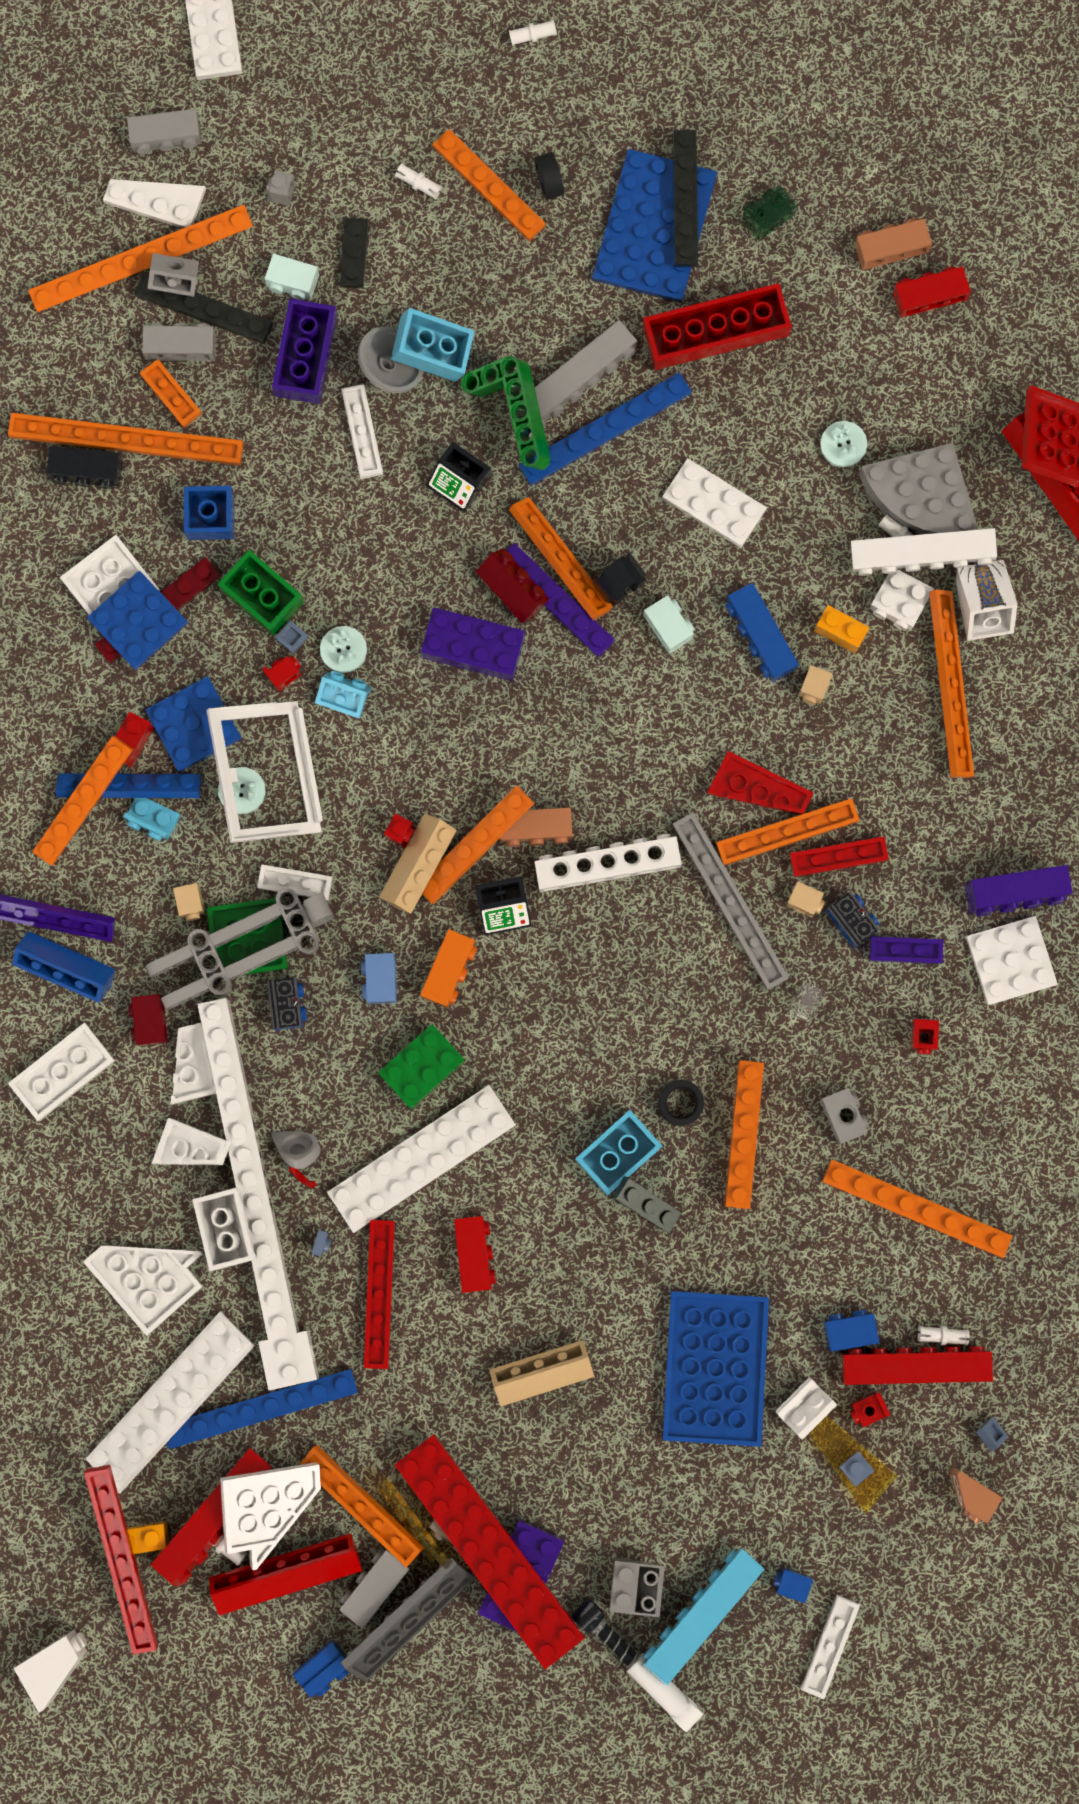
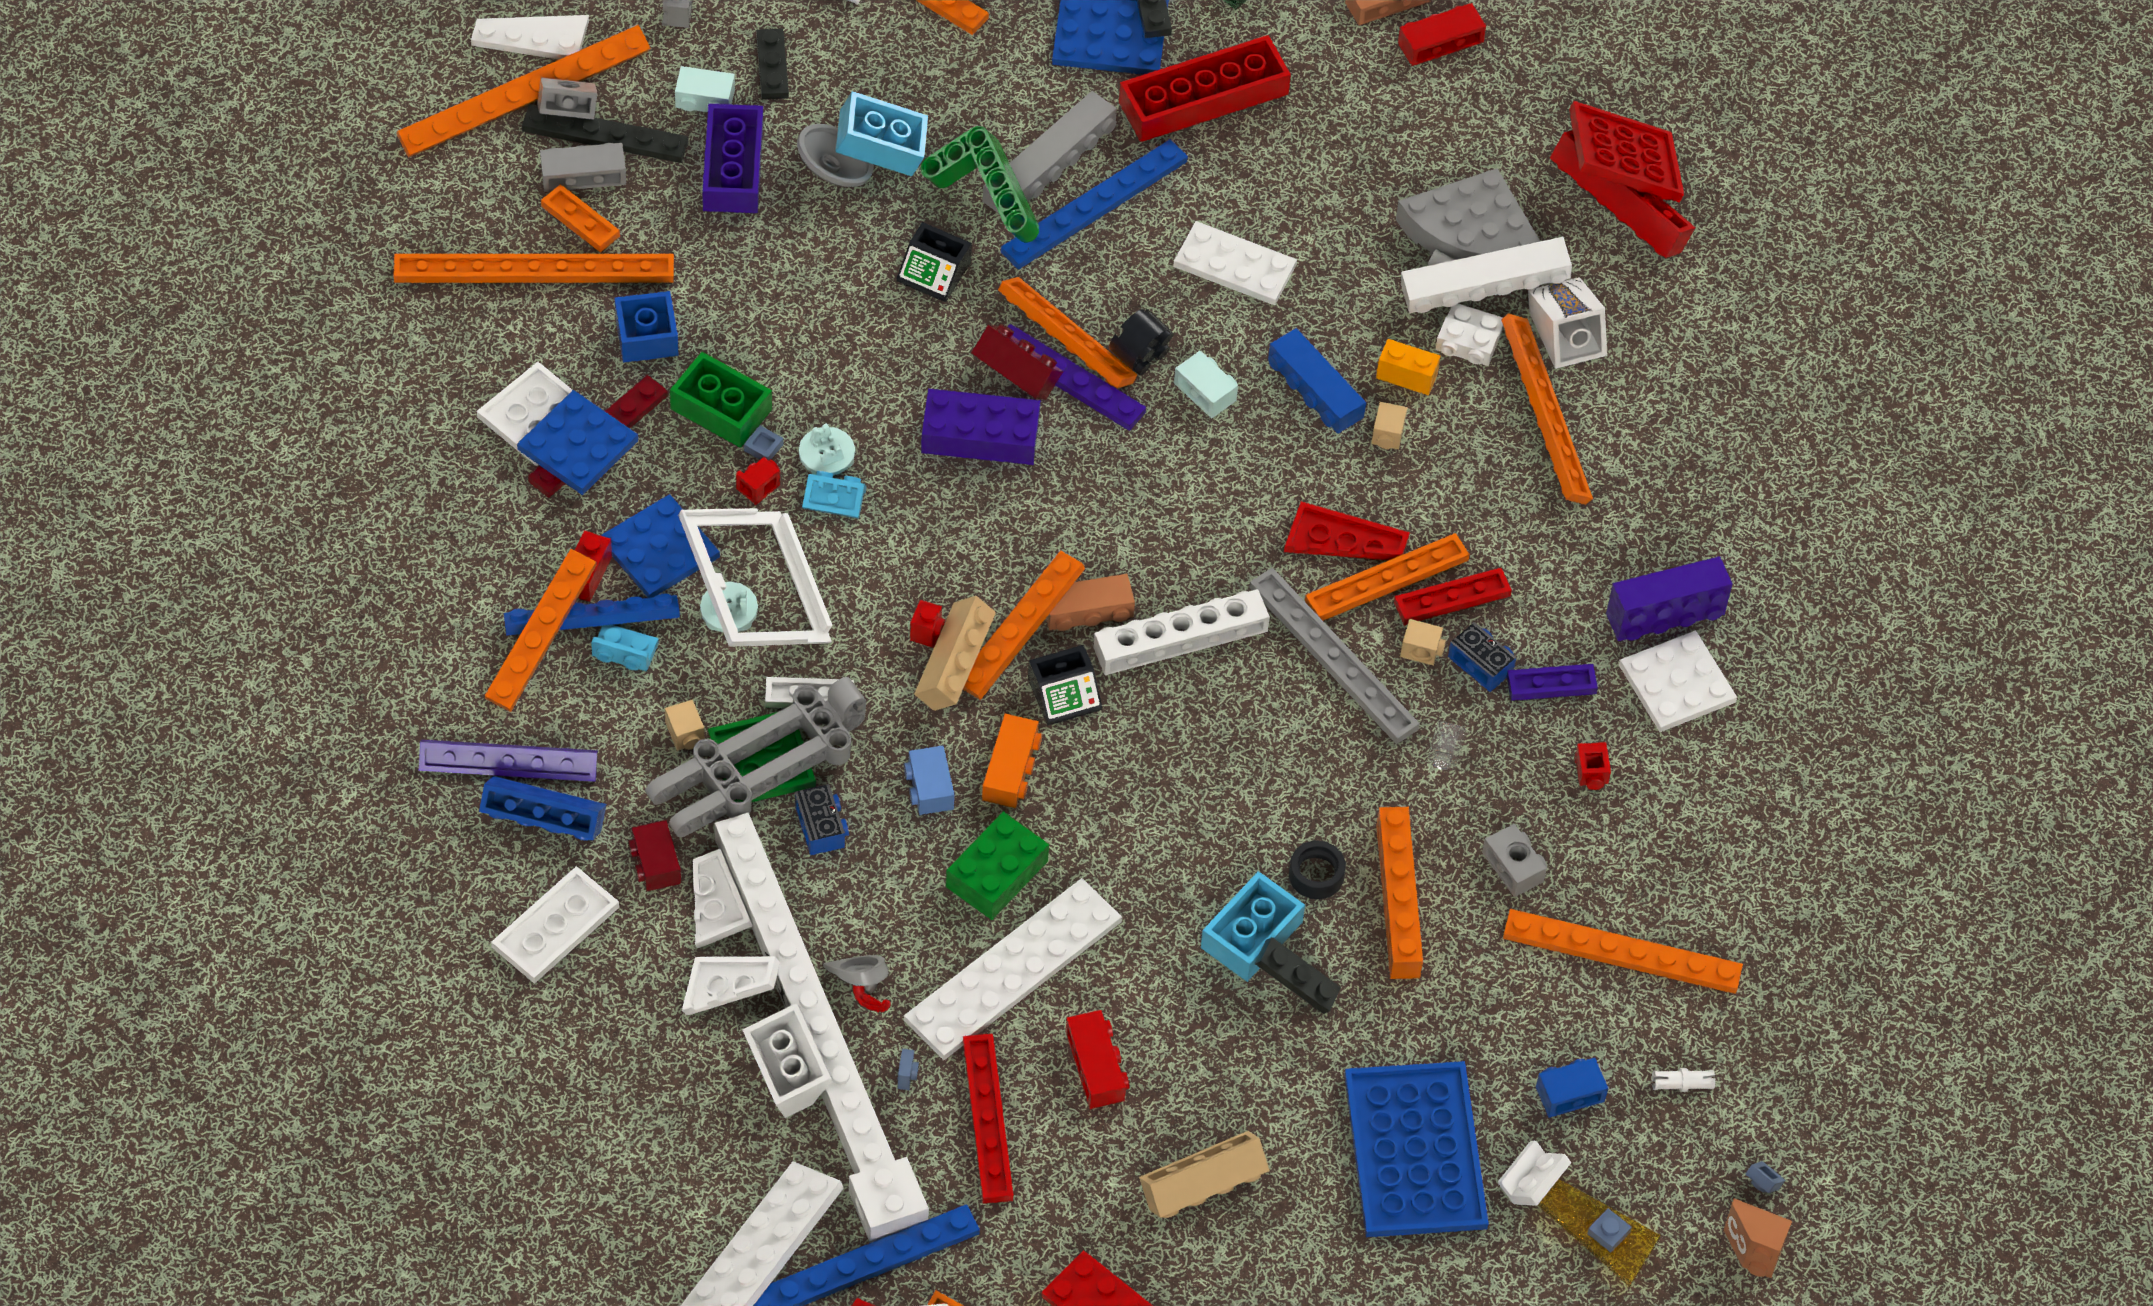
camera: 15 degrees left, 25 degrees down
(84, 467) = (489, 299): black brick -> none
(146, 1280) = (695, 1138): white wing -> none
(362, 431) = (811, 235): white tile -> none
(847, 454) = (1369, 180): light aqua plate -> none
(879, 1409) = (1622, 1170): red brick -> none
(917, 1367) = (1658, 1115): red brick -> none

